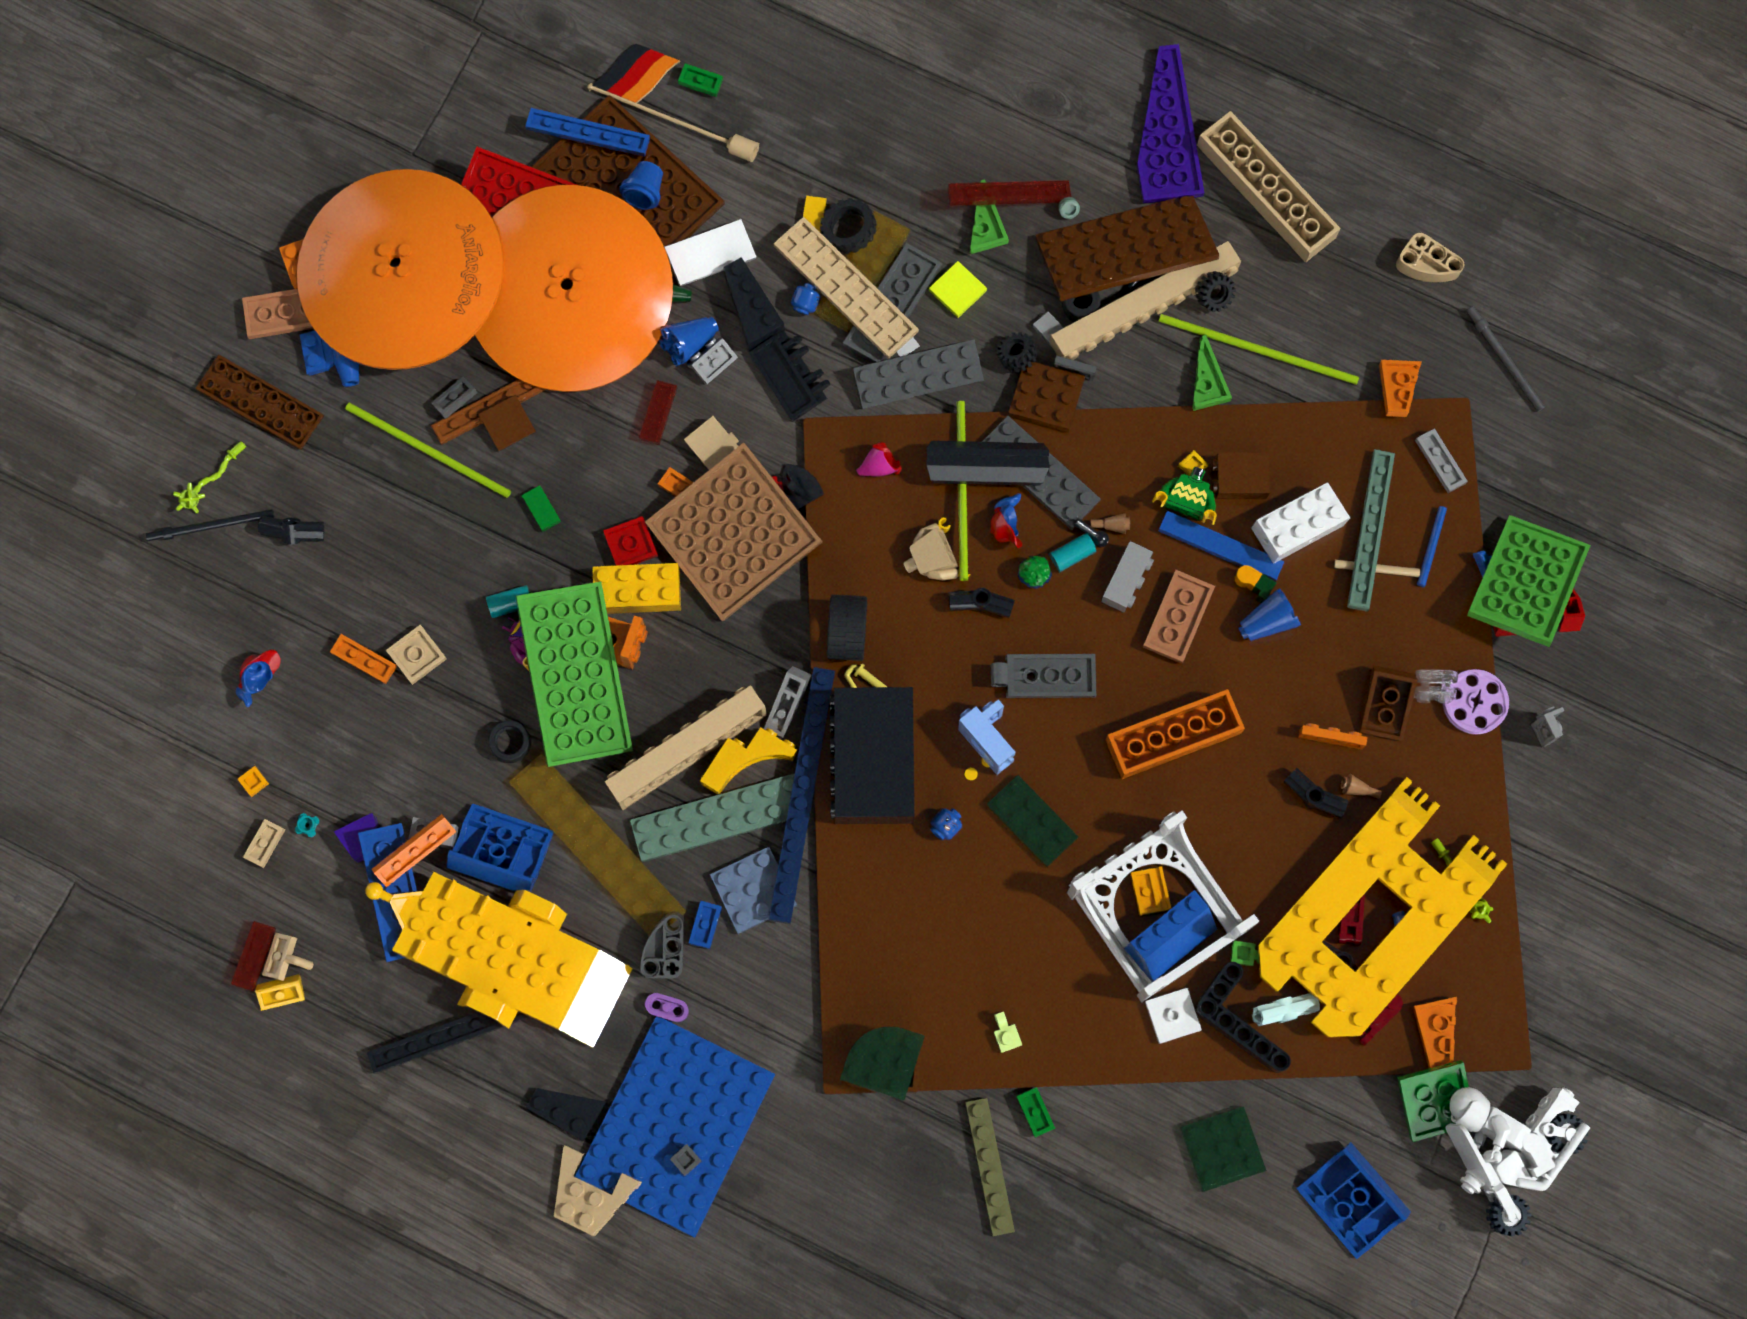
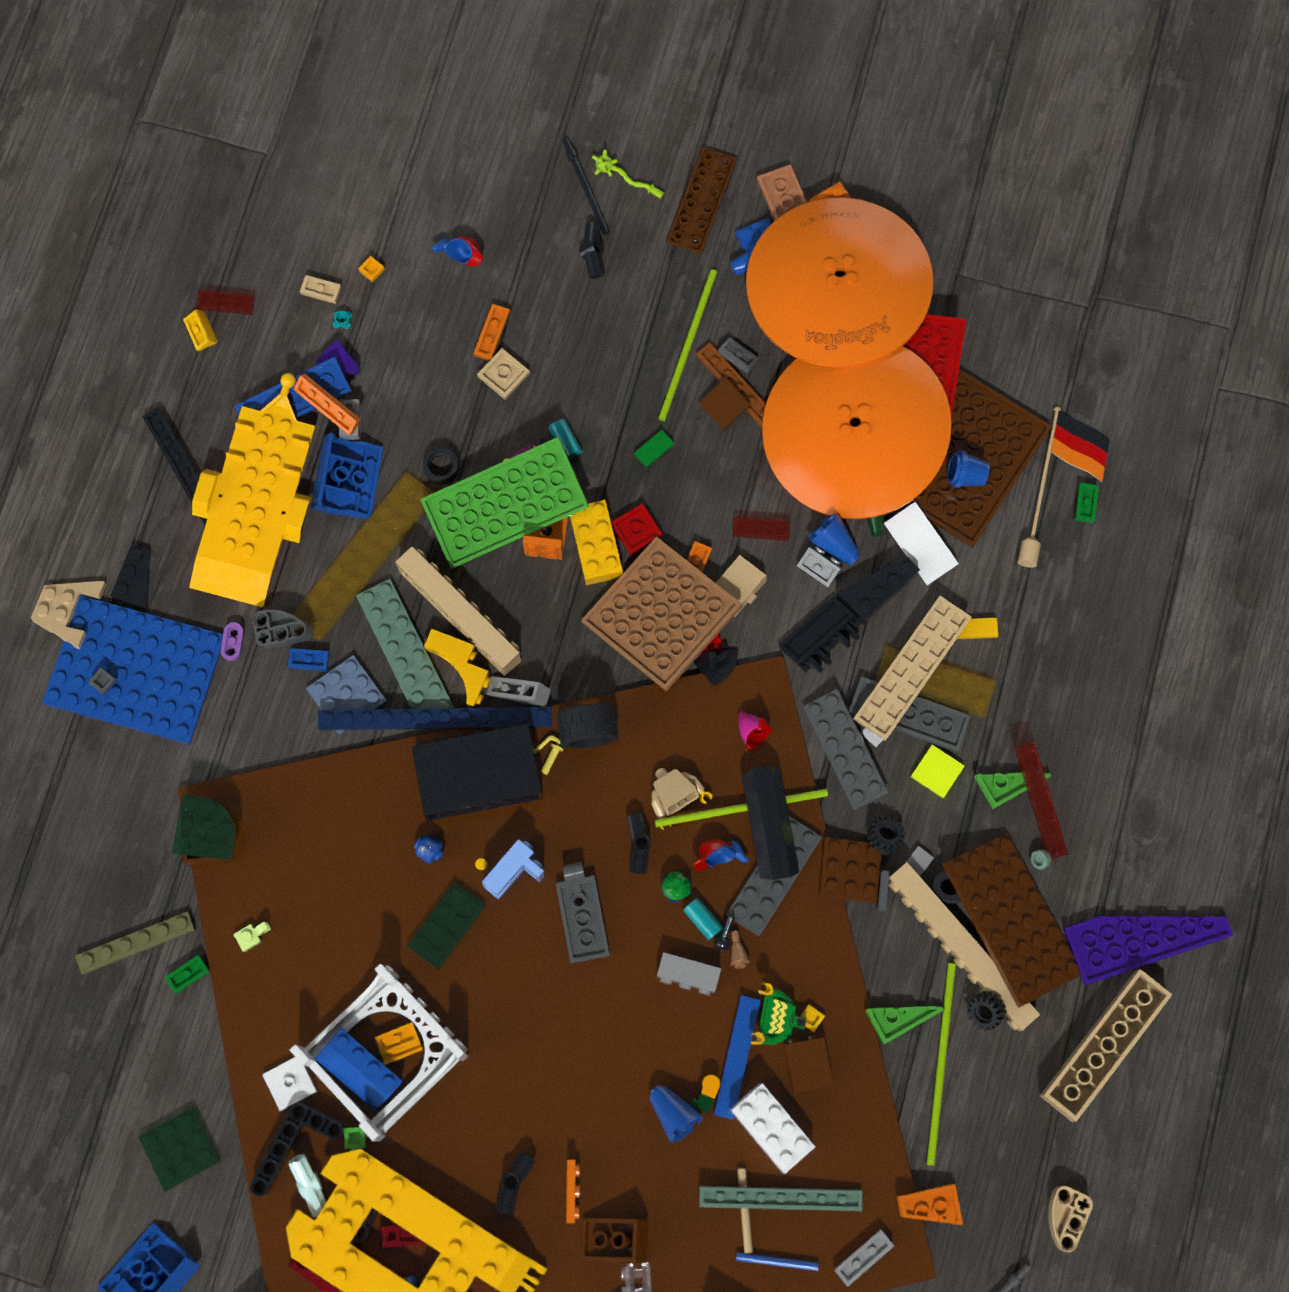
camera: 80 degrees right, 0 degrees up
(281, 956) = (227, 322): tan plate -> none
(587, 132) = (1009, 414): blue plate -> none
(805, 299) = (895, 635): blue head -> none
(844, 208) = (968, 675): black tyre -> none
(1174, 734) = (546, 1041): orange brick -> none
(1178, 616) = (660, 1027): nougat plate -> none
(1353, 786) = (528, 1220): medium nougat cone -> none

